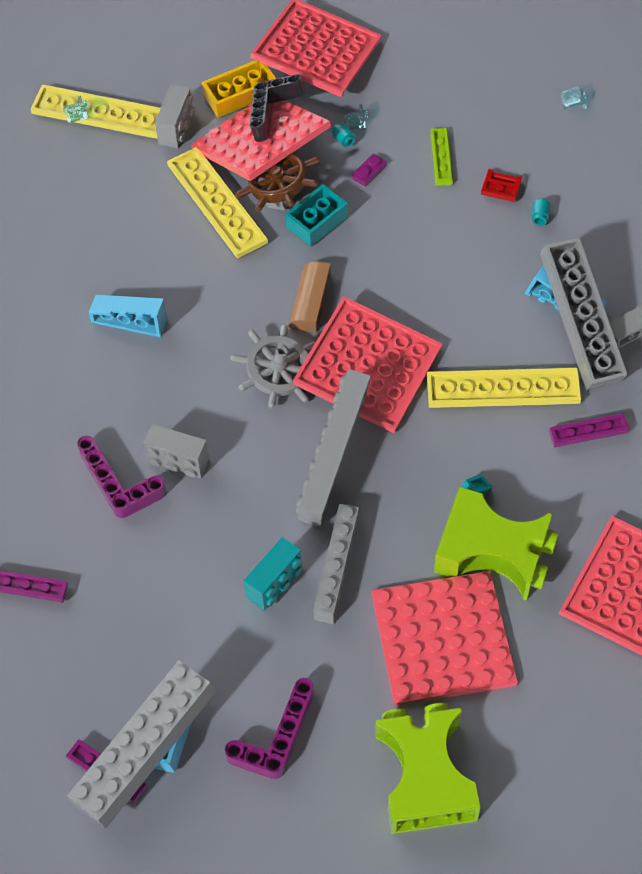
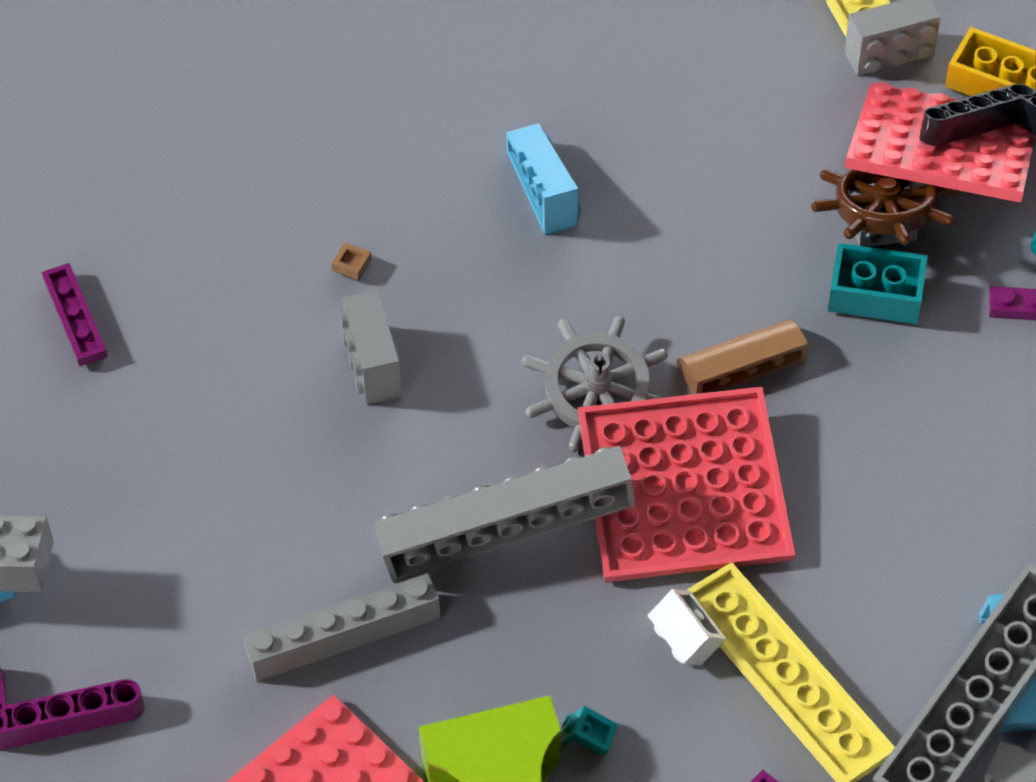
camera: 55 degrees right, 5 degrees down
(106, 431) = (351, 261): none -> medium nougat plate
(110, 482) = (264, 330): magenta beam -> none
(217, 202) = (794, 181): light yellow plate -> none
(273, 574) = (267, 560): teal brick -> none
(451, 412) = (686, 627): none -> white brick

